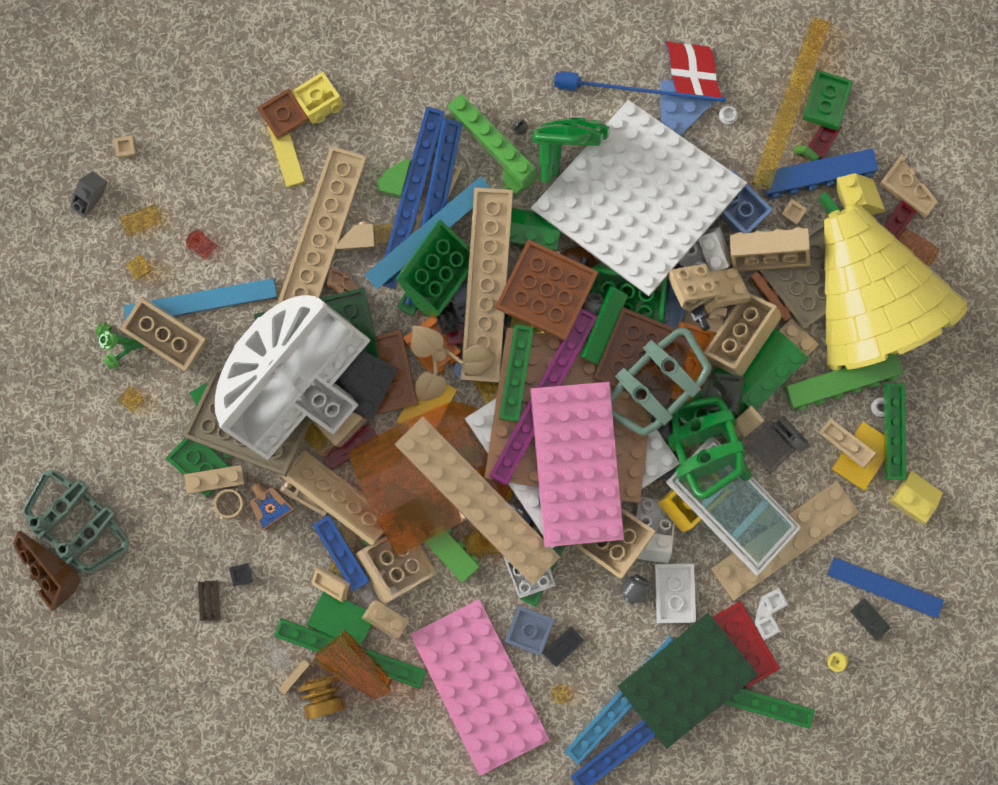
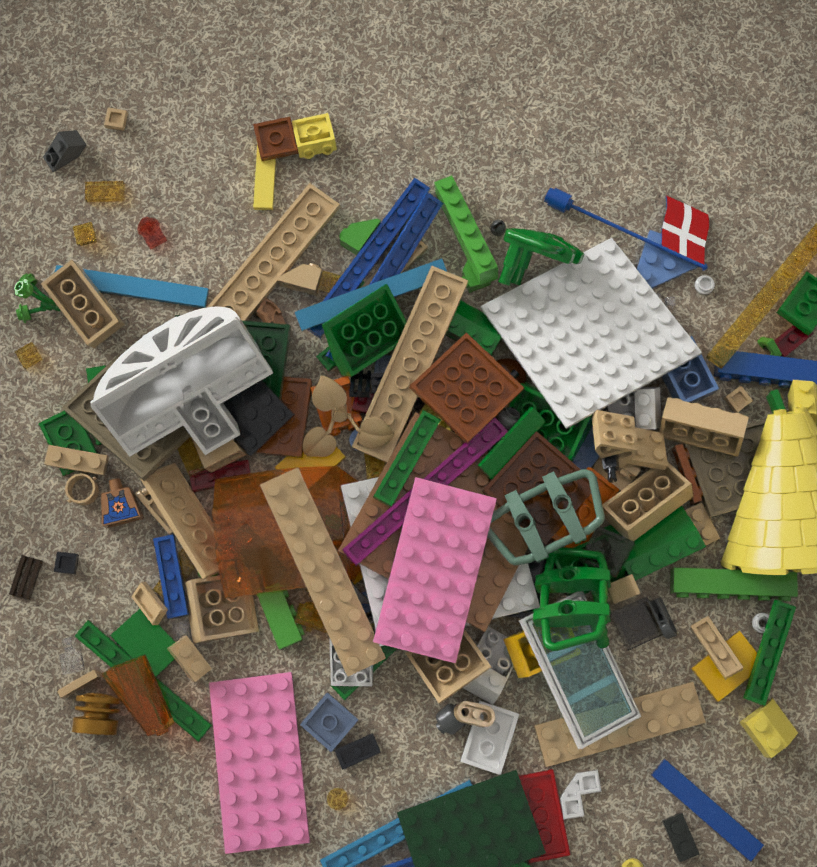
camera: 15 degrees right, 5 degrees down
(653, 577) = (473, 713): none -> tan plate

